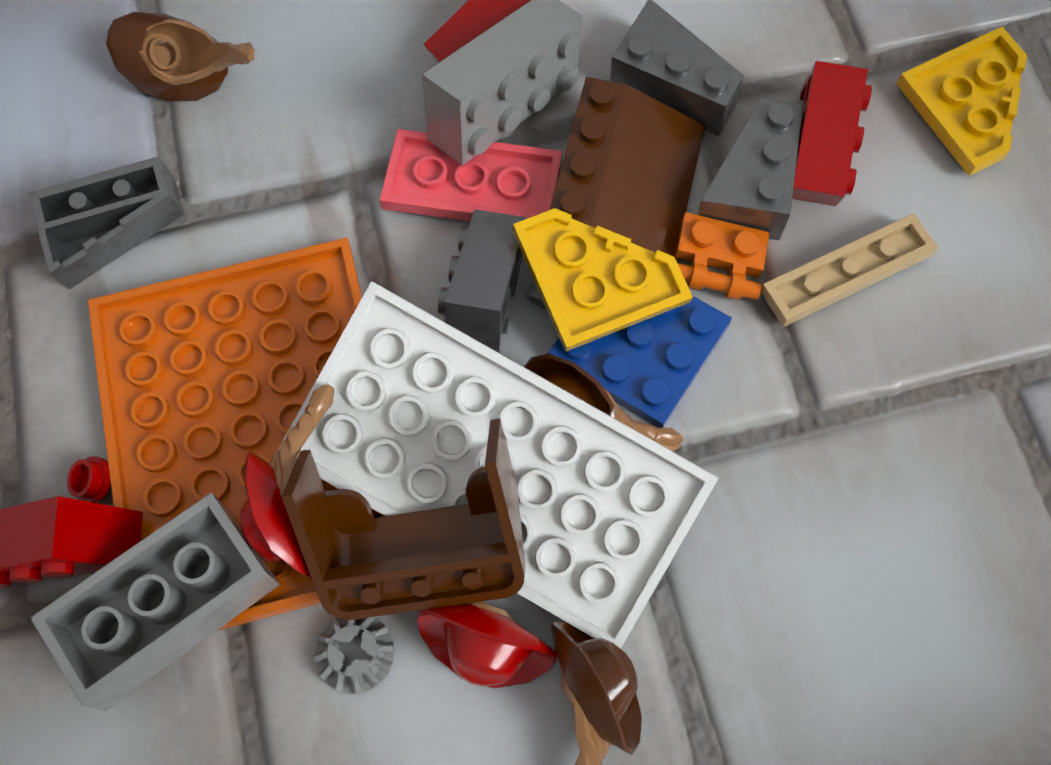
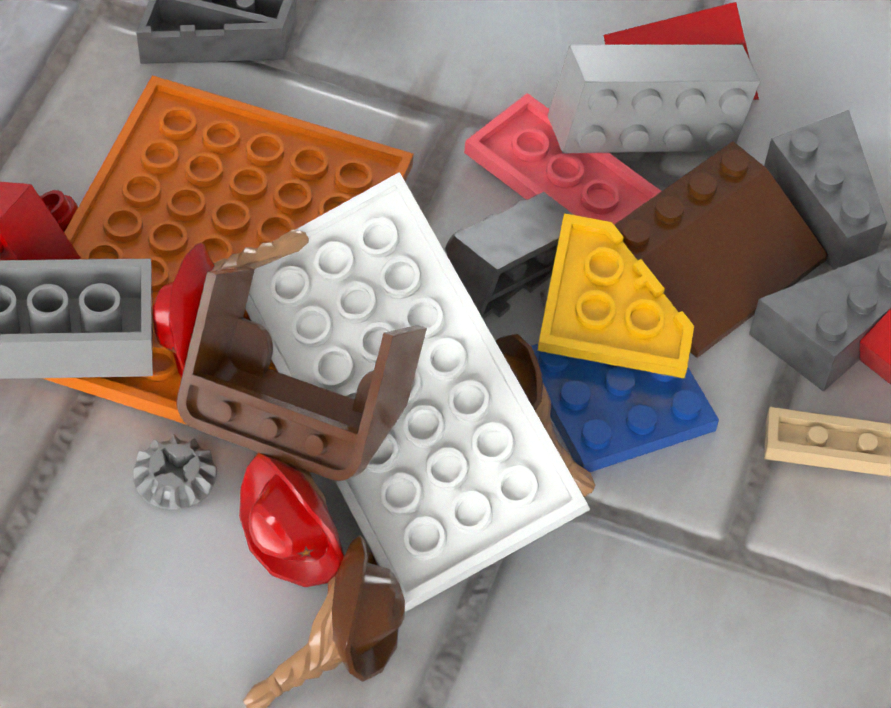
camera: 25 degrees right, 15 degrees down
(725, 247) = (757, 358): orange plate -> none

